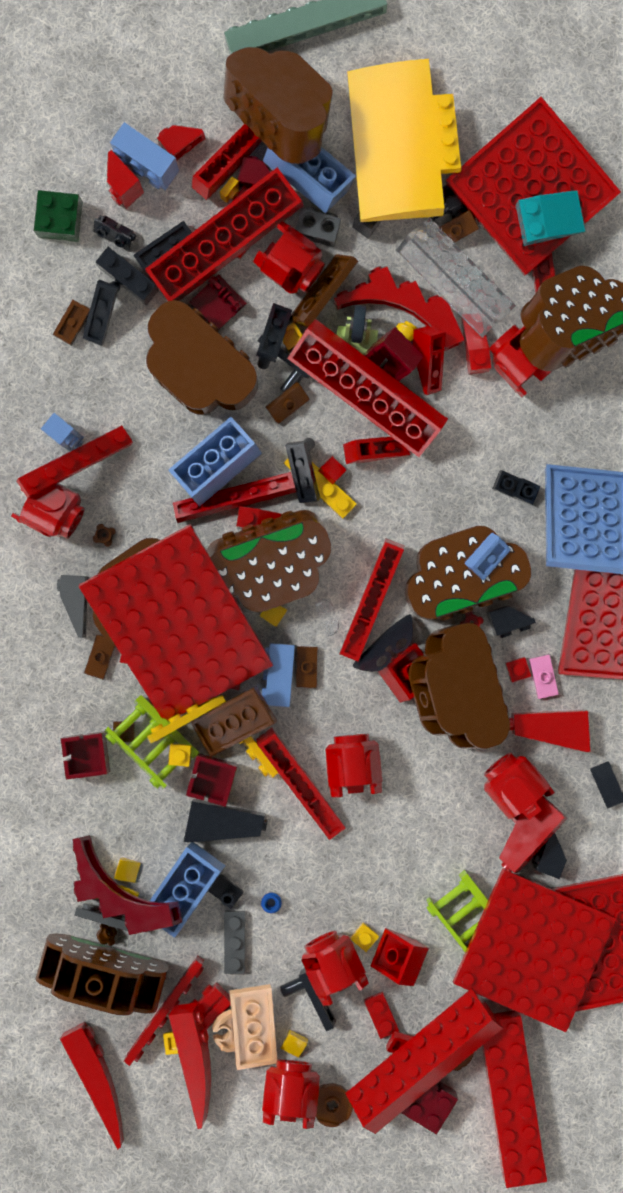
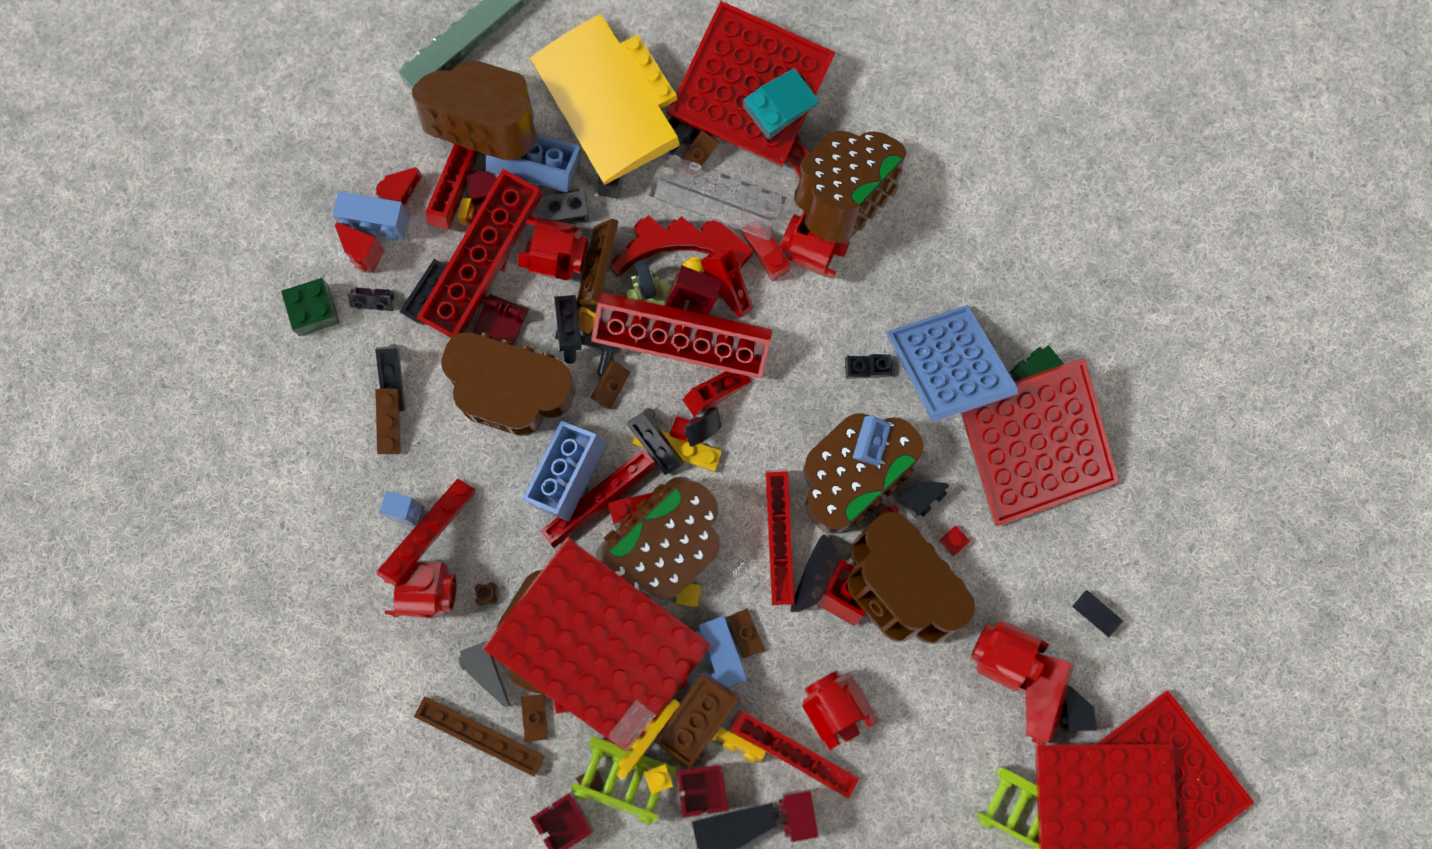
camera: 20 degrees left, 10 degrees down
(48, 651) = (479, 736): none -> reddish brown plate
(71, 322) = (365, 402): reddish brown plate -> none
(83, 348) = (388, 421): none -> reddish brown plate
(127, 276) = (401, 333): black brick -> none
(176, 702) = (631, 725): none -> clear plate
(283, 834) = (799, 815): none -> dark red piece
(348, 477) = (703, 427): none -> black slope
(543, 676) = (982, 536): bright pink plate -> none
(559, 728) = (1019, 580): red slope -> none

